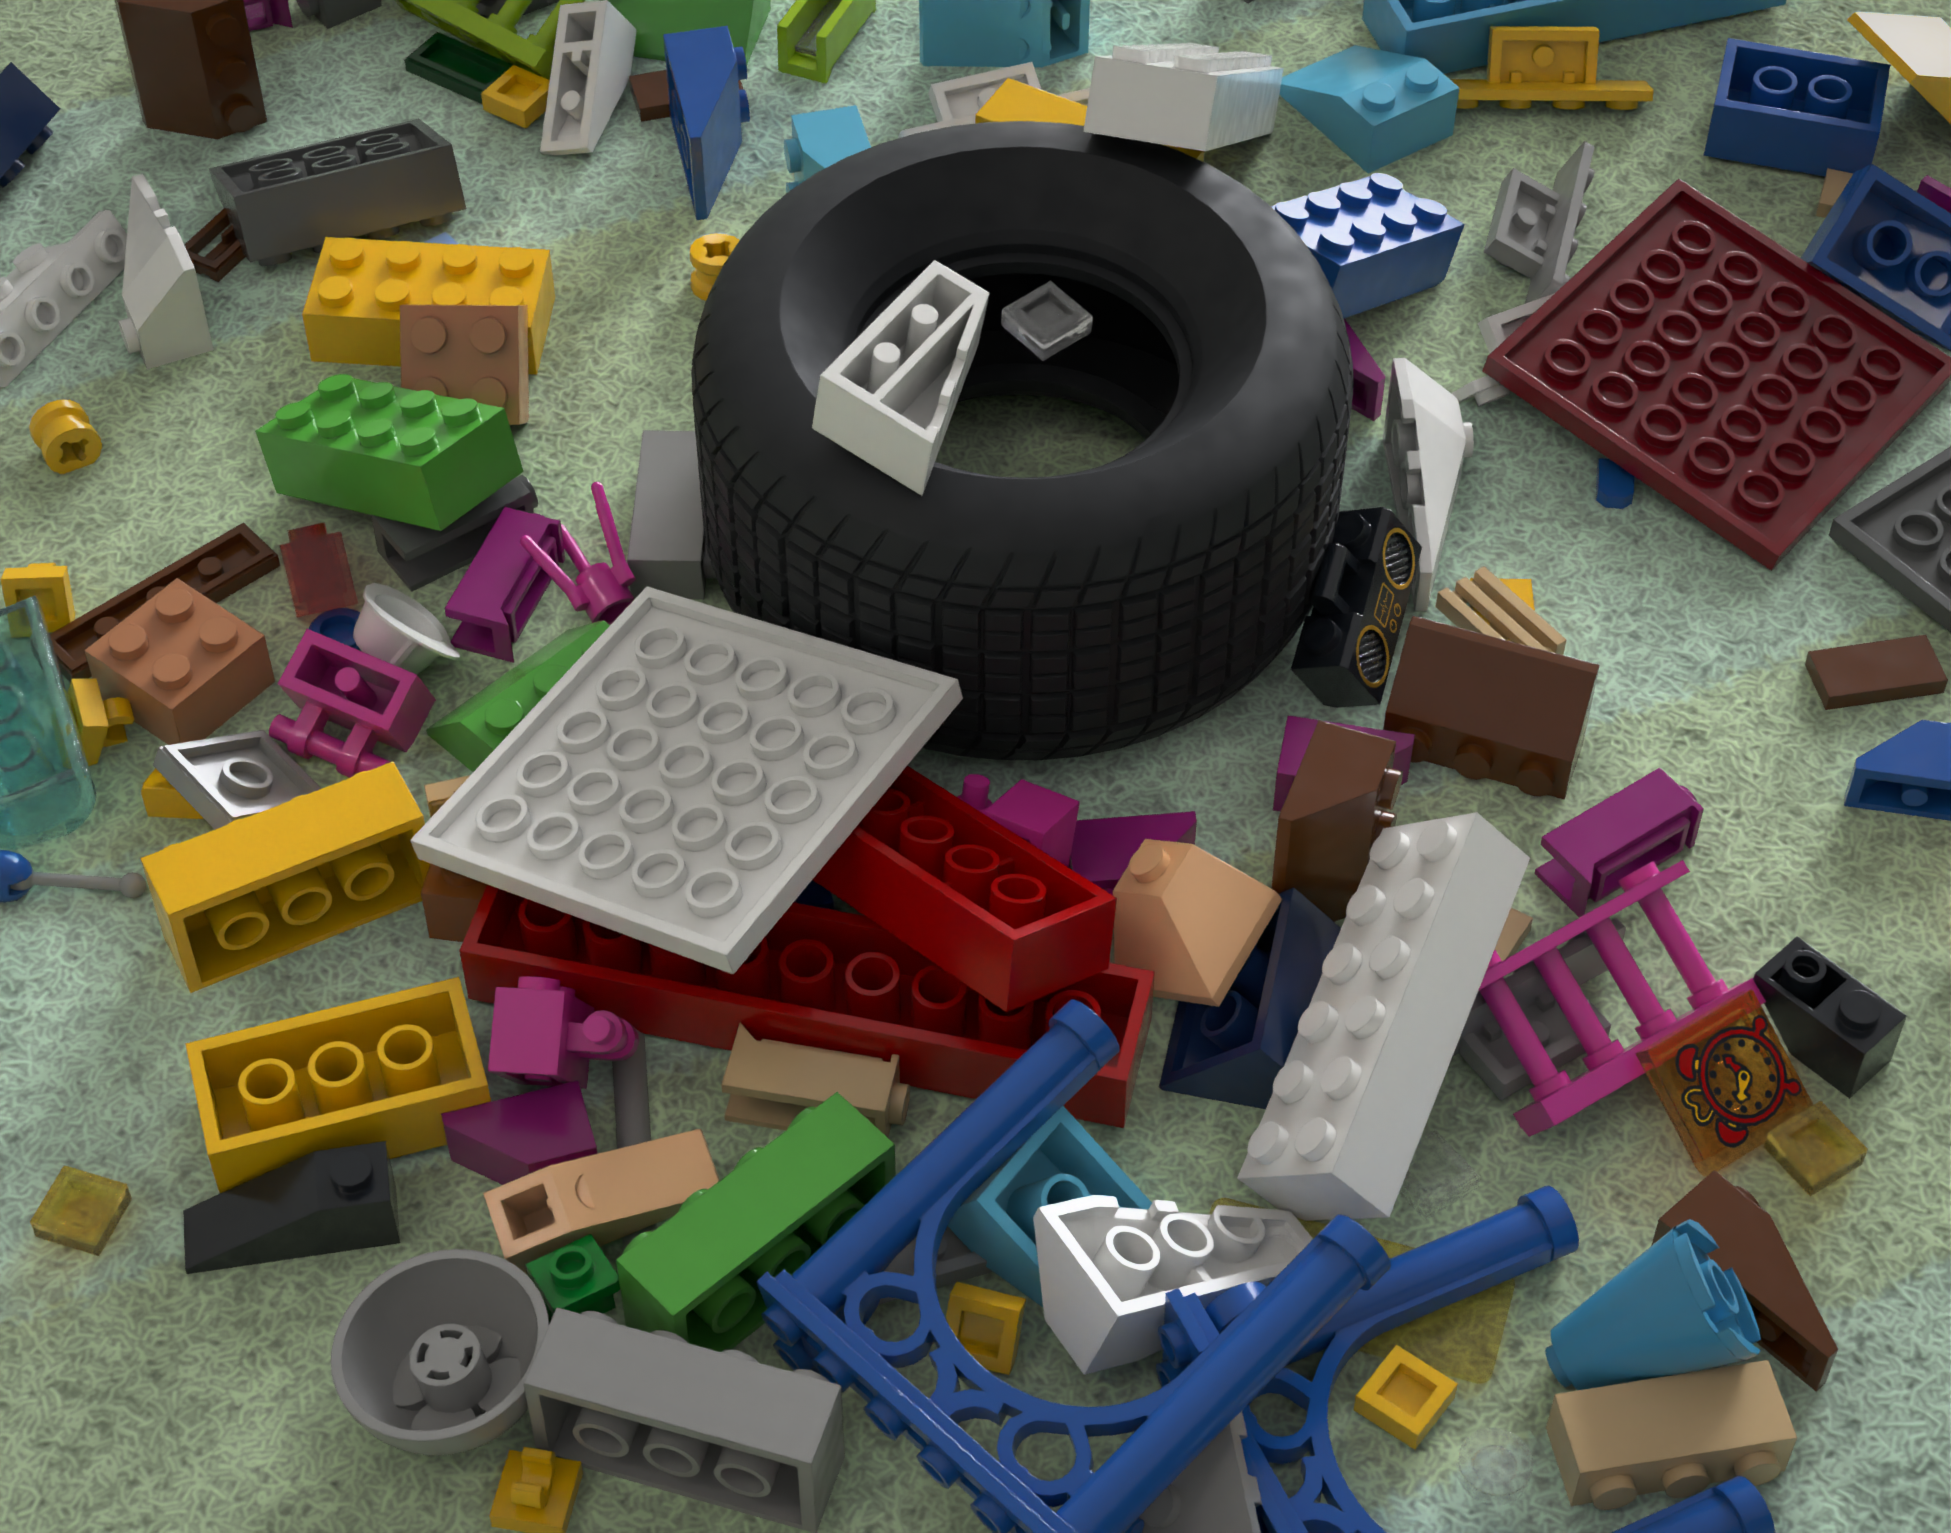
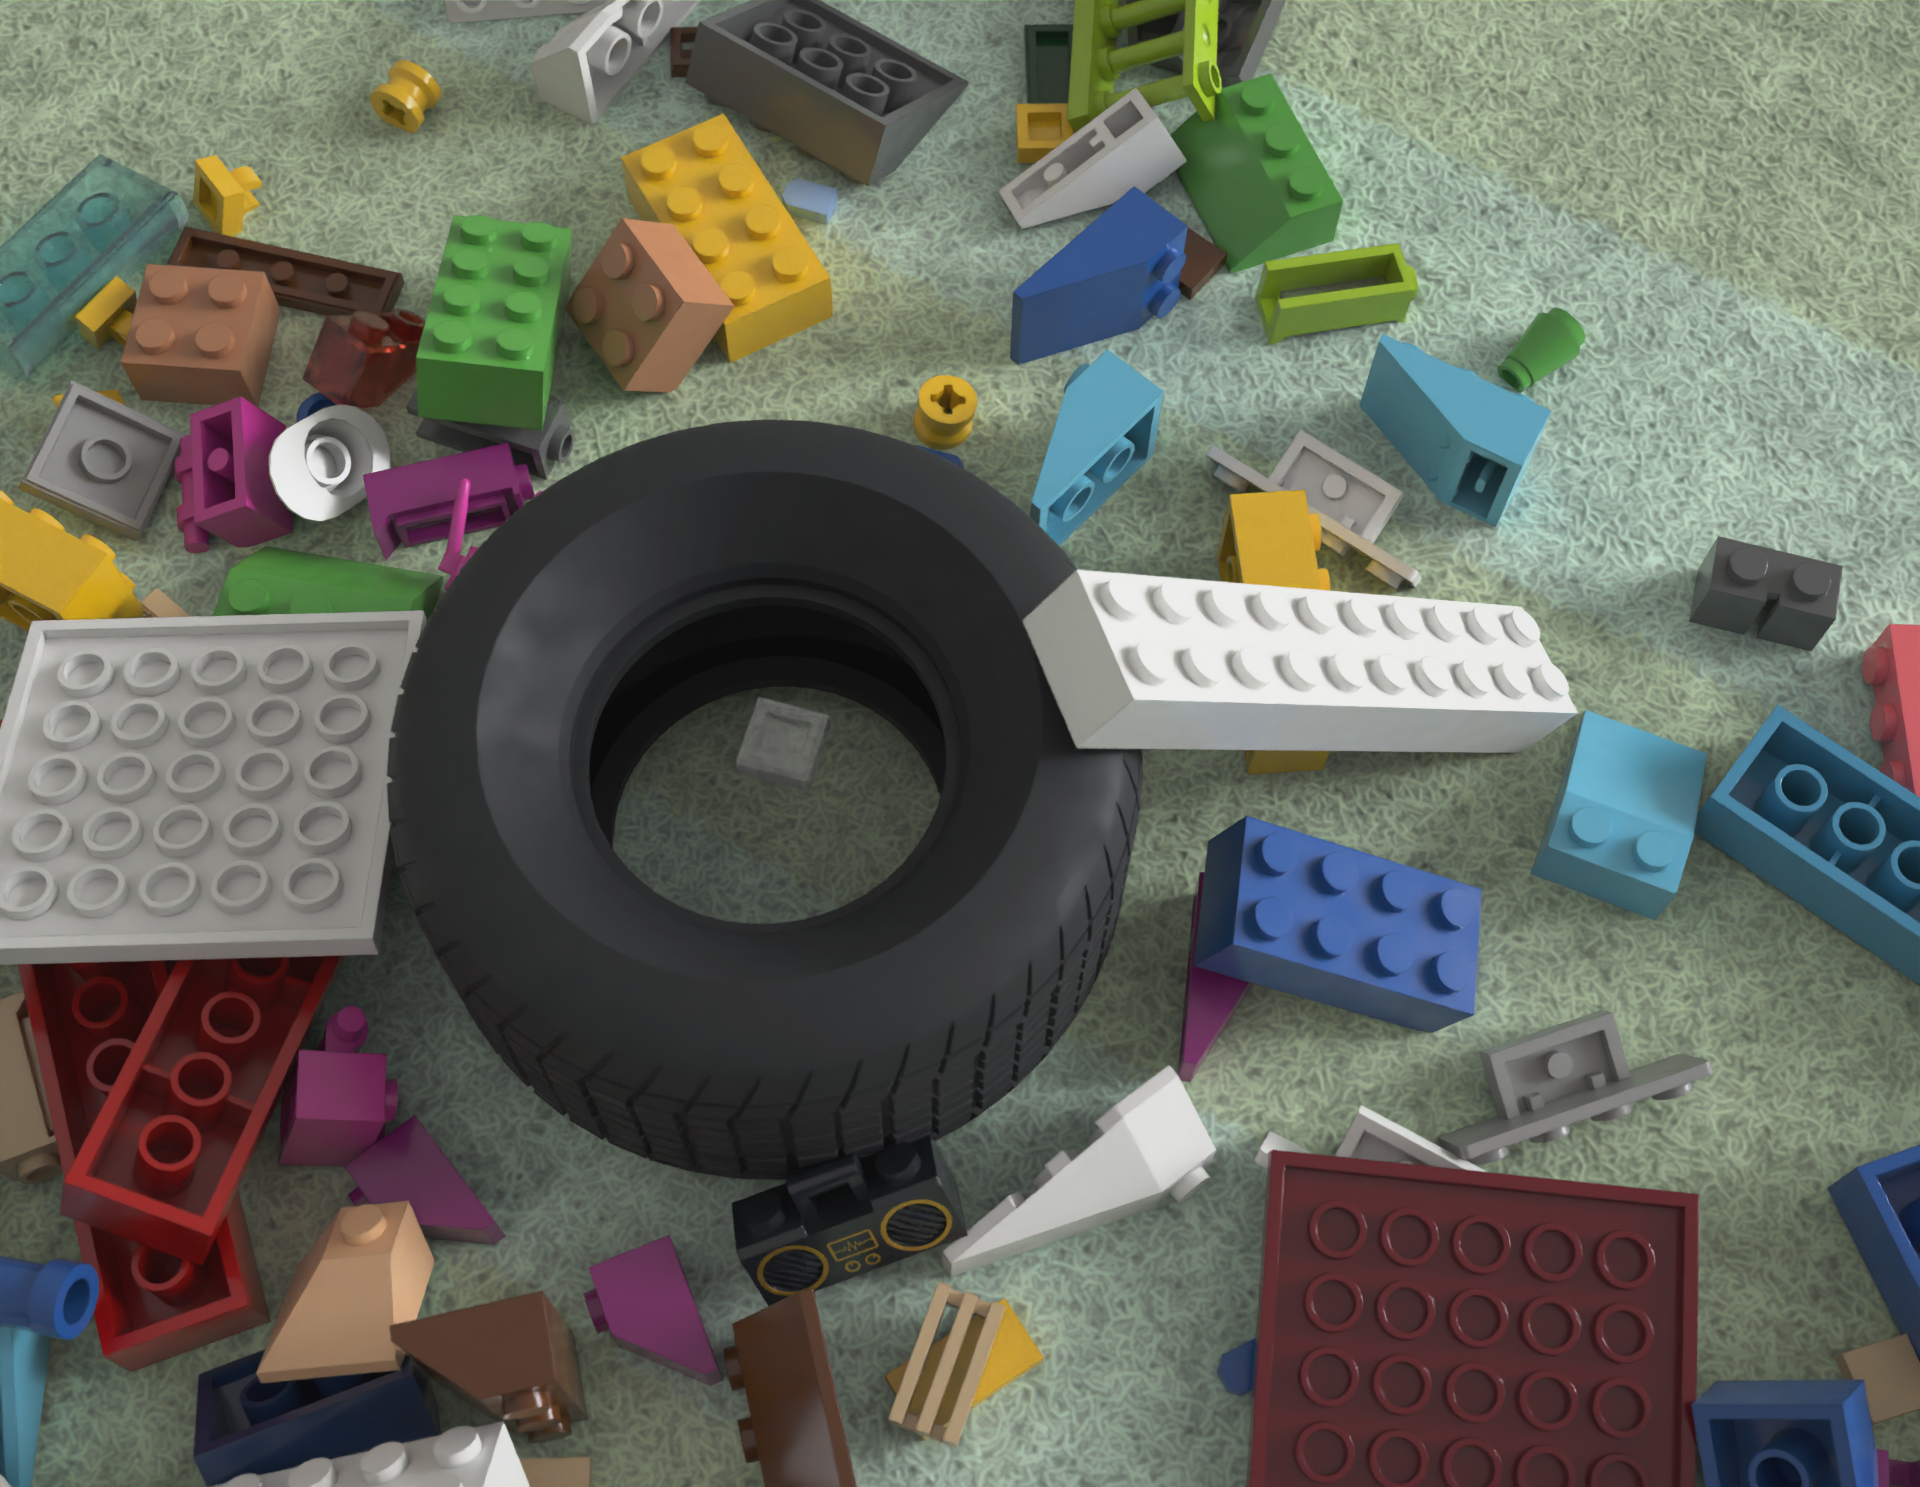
camera: 55 degrees right, 15 degrees up
(903, 376) = (527, 681): white wedge -> none
(1547, 66) = (1802, 958): yellow bracket -> none

